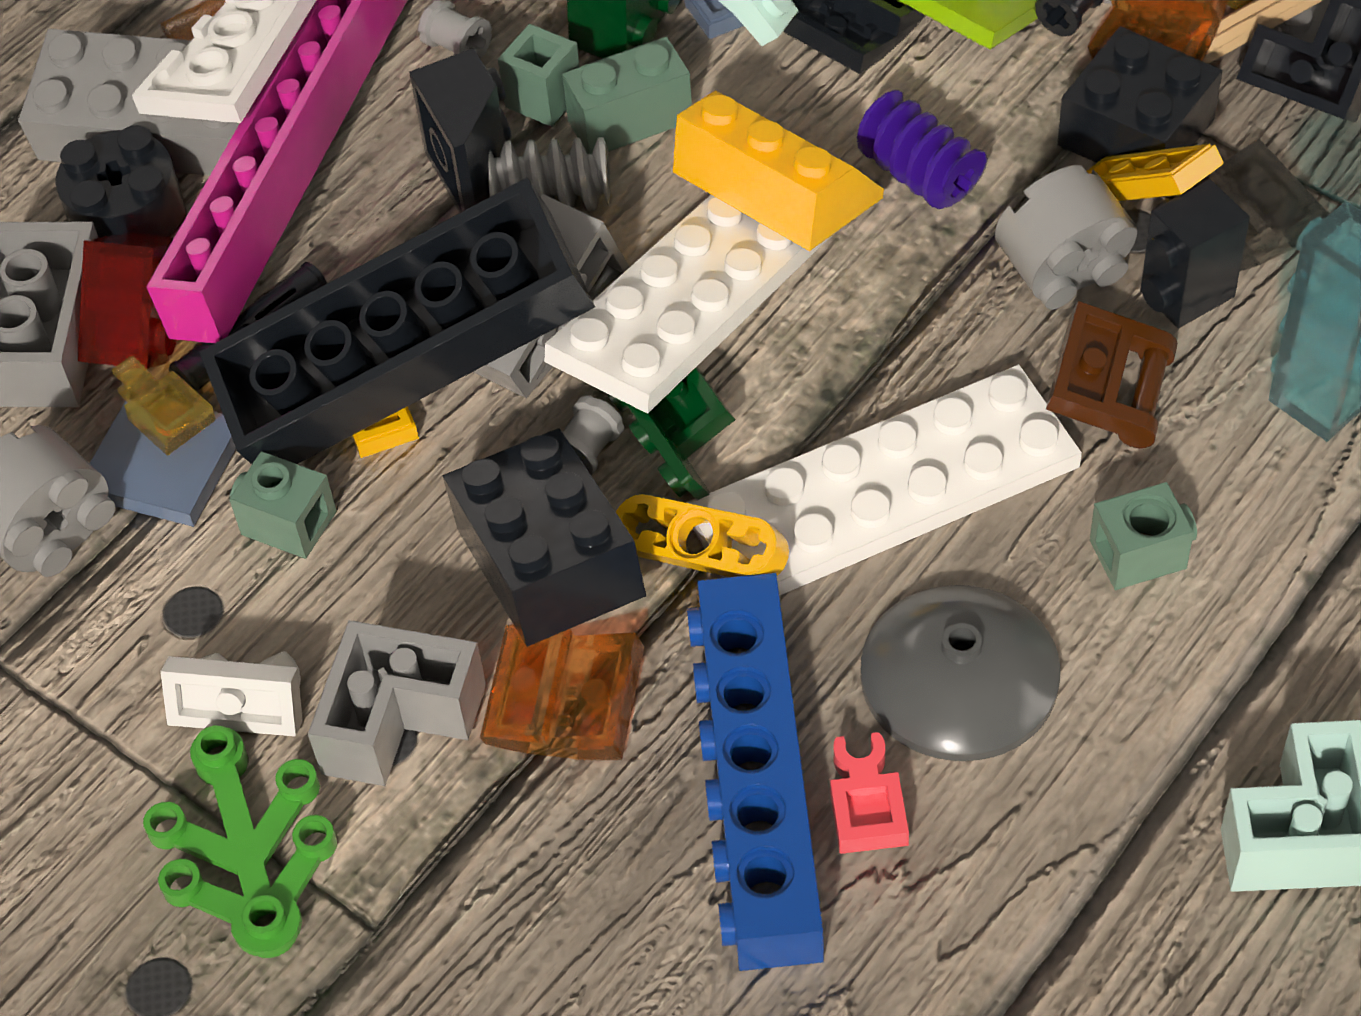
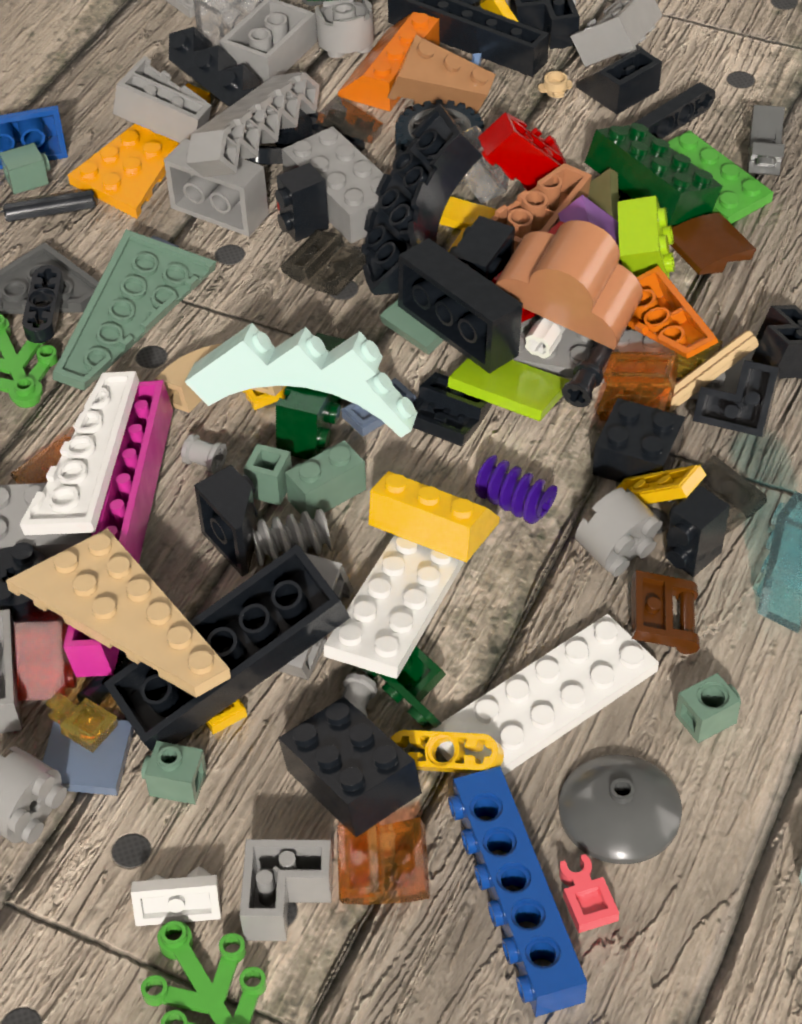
camera: 15 degrees left, 5 degrees down
(242, 236) = (119, 605): none -> tan wing

